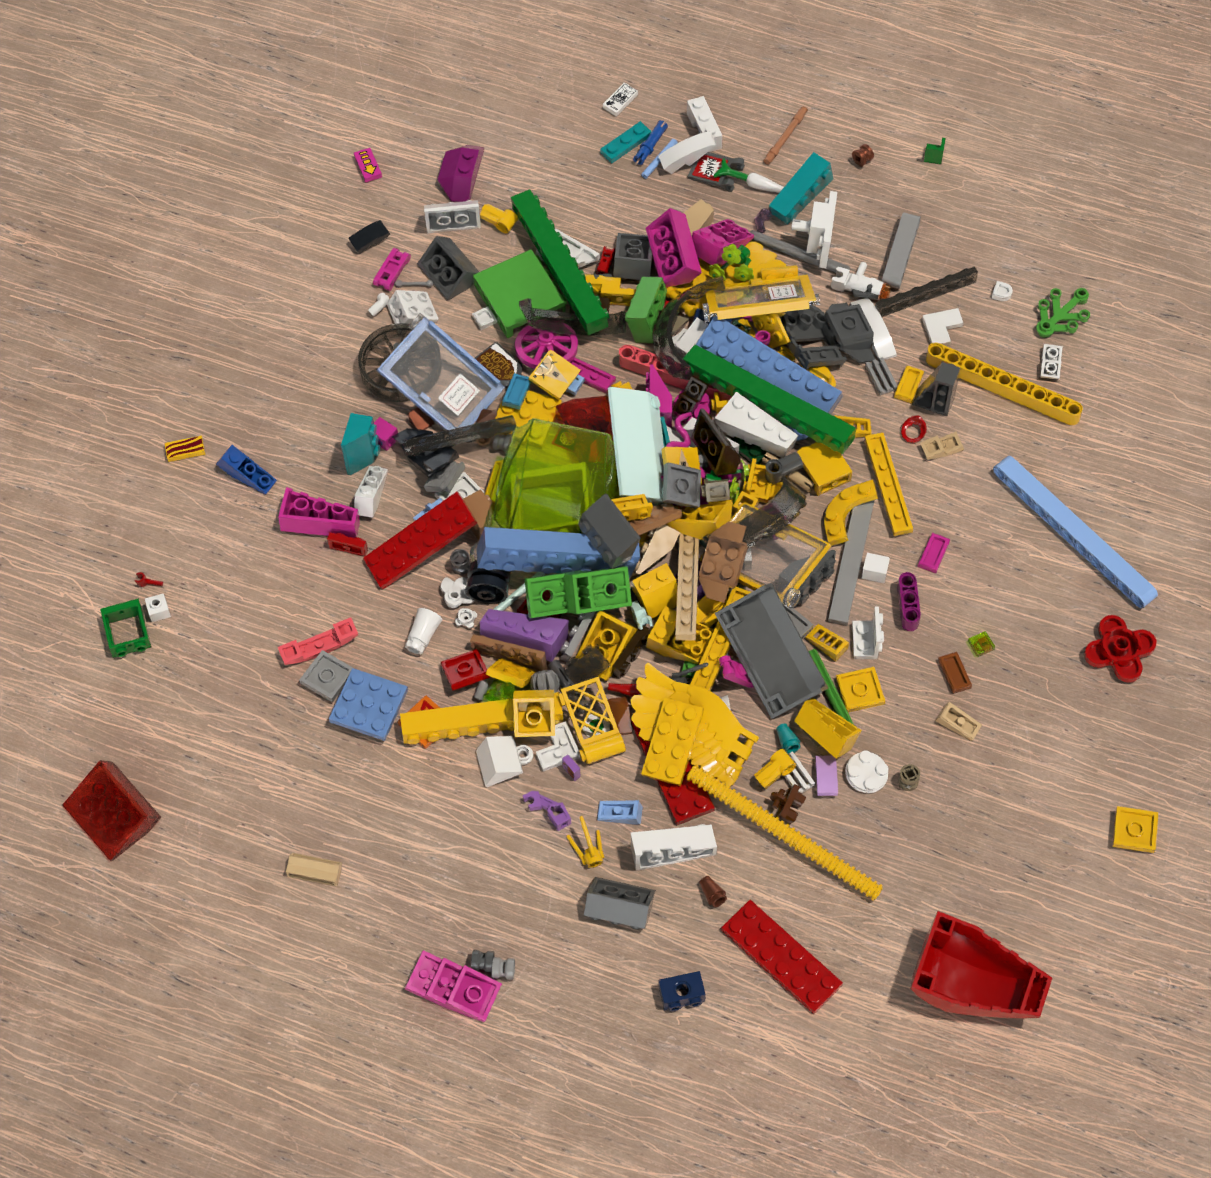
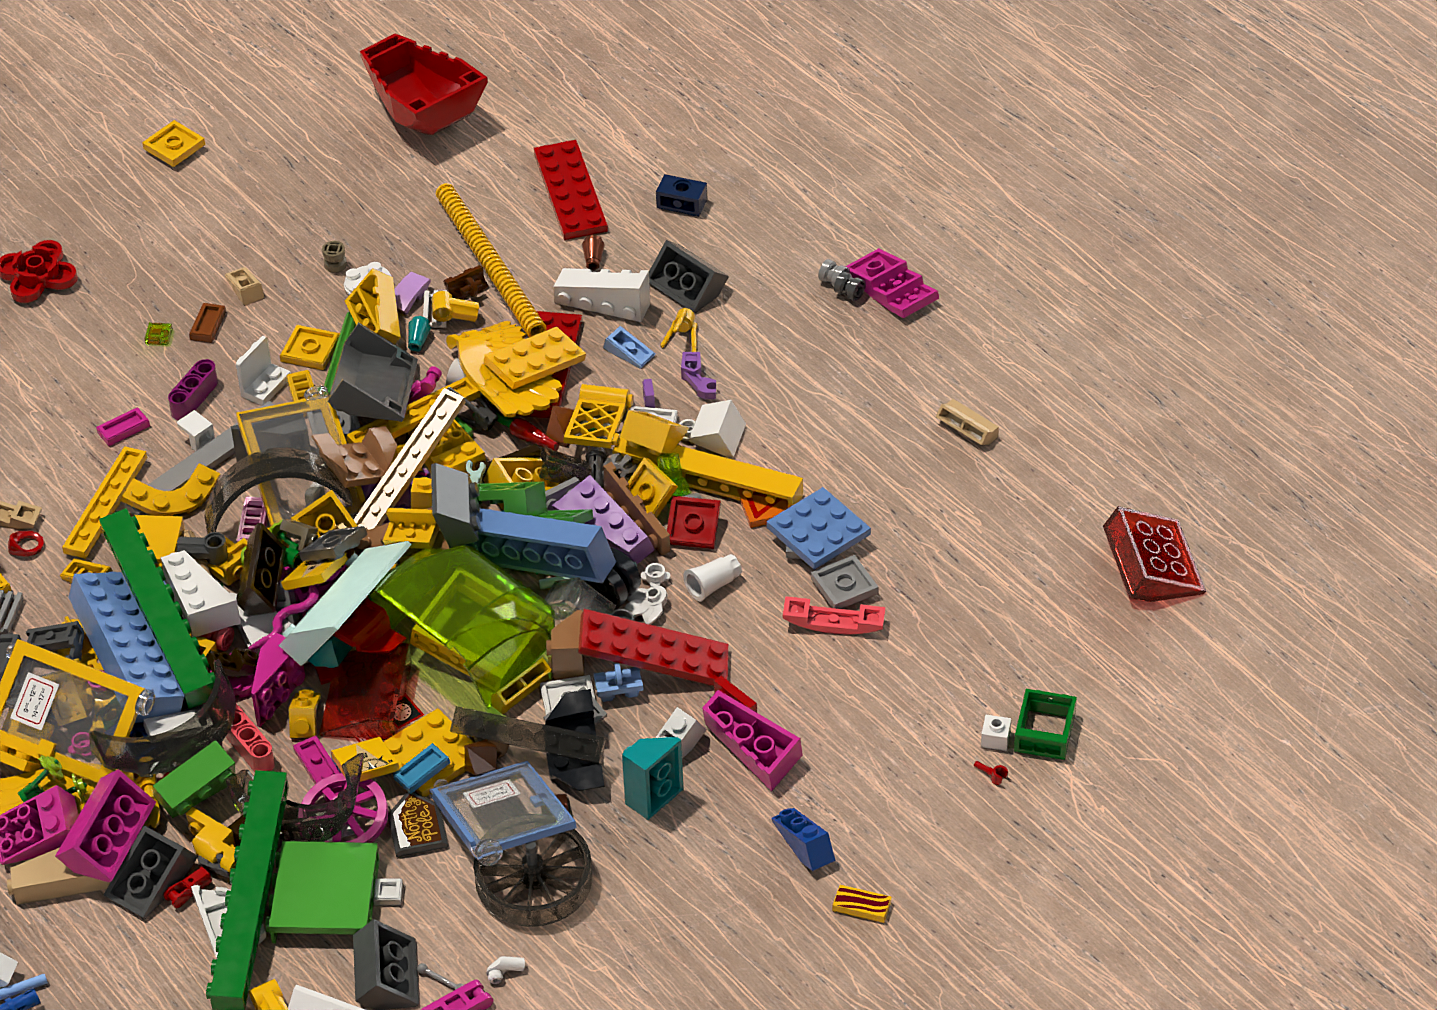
camera: 150 degrees left, 15 degrees down
(385, 432) = (611, 801): dark pink brick -> none
(406, 306) = (473, 933): white bracket -> none

